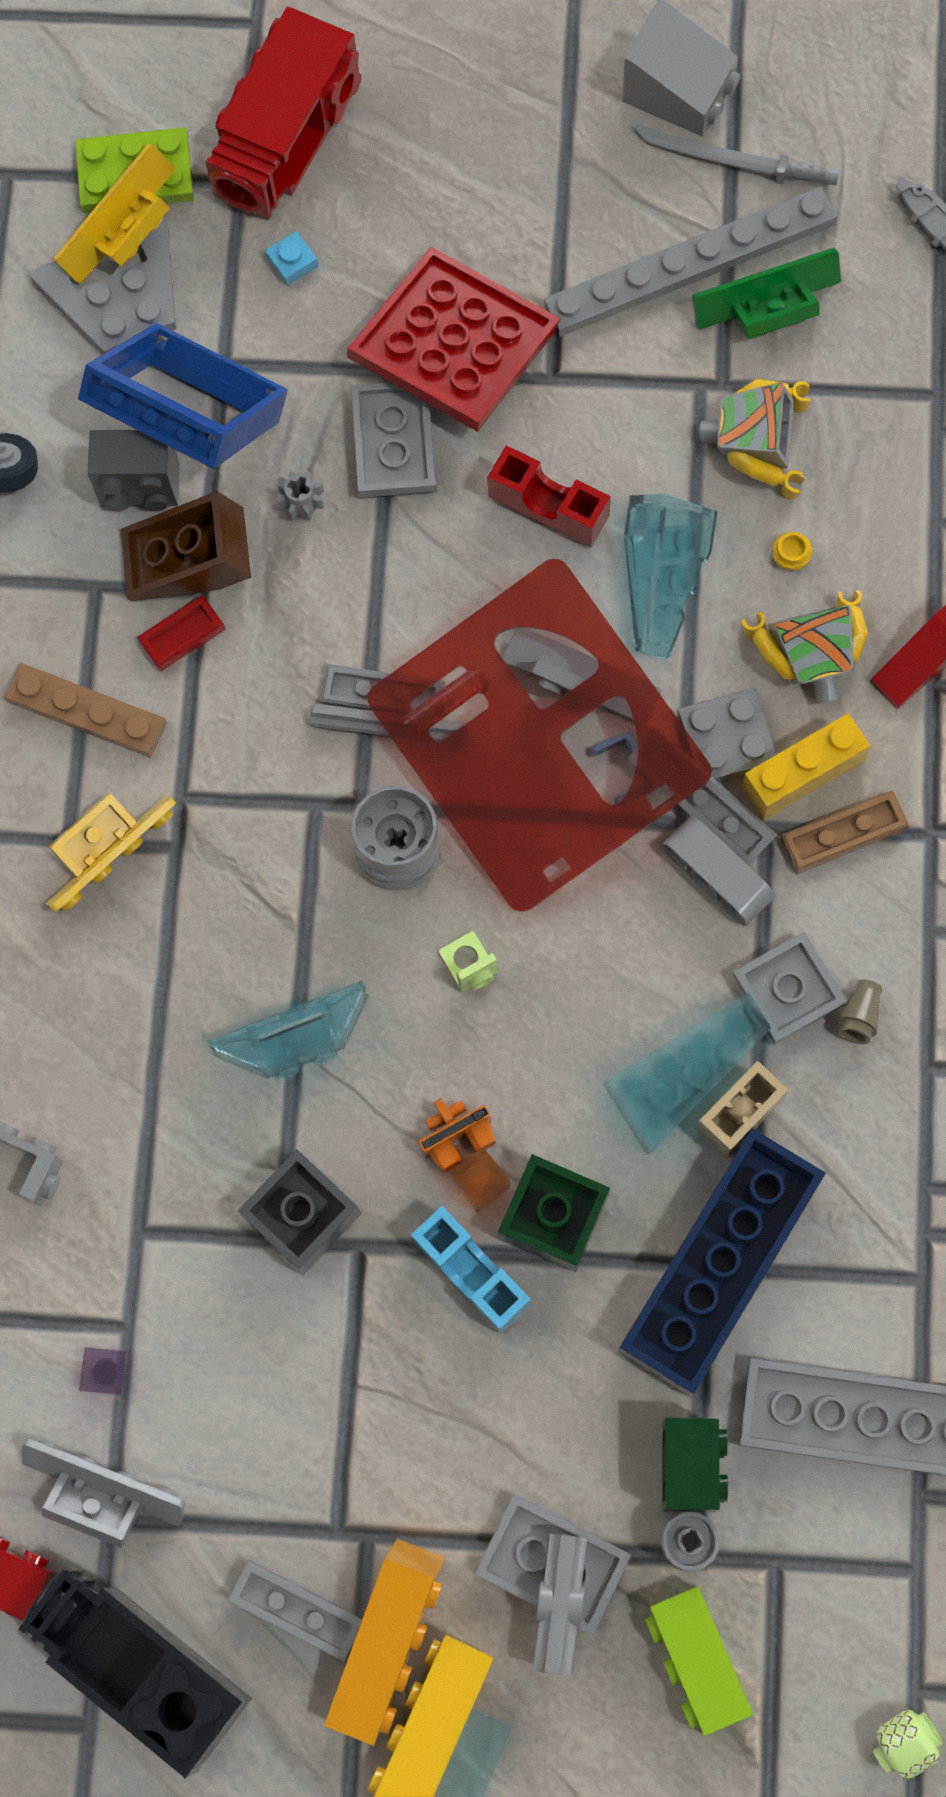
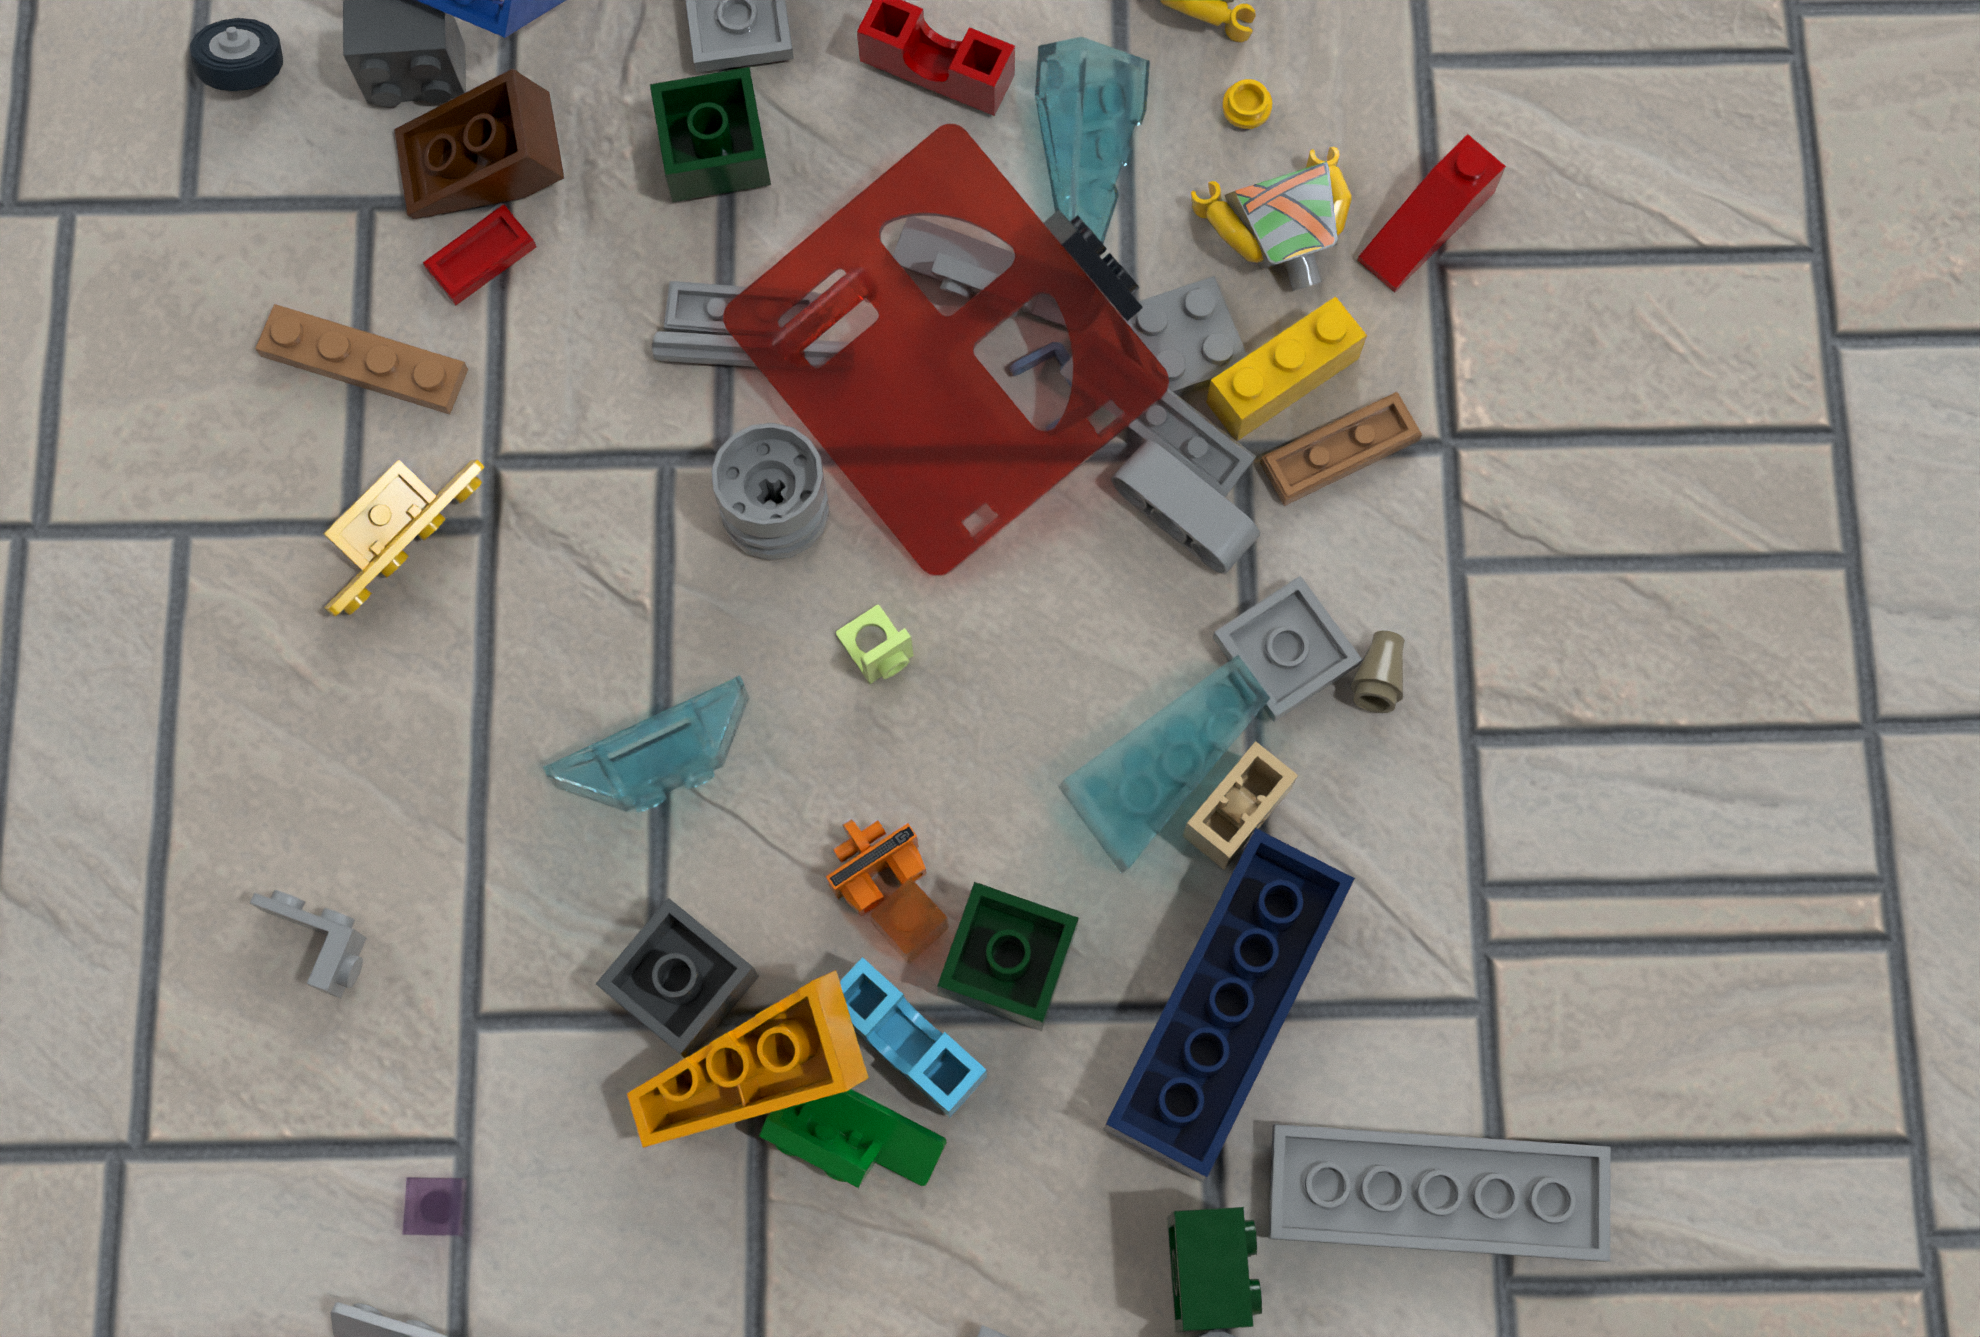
camera: 10 degrees left, 0 degrees up
(296, 486) = (620, 72): light grey gear -> none
(364, 1282) = (769, 1063): none -> light orange wedge
(367, 550) = (710, 134): none -> dark green brick
(410, 1330) = (851, 1134): none -> green bracket
(666, 681) = (1105, 272): none -> black plate

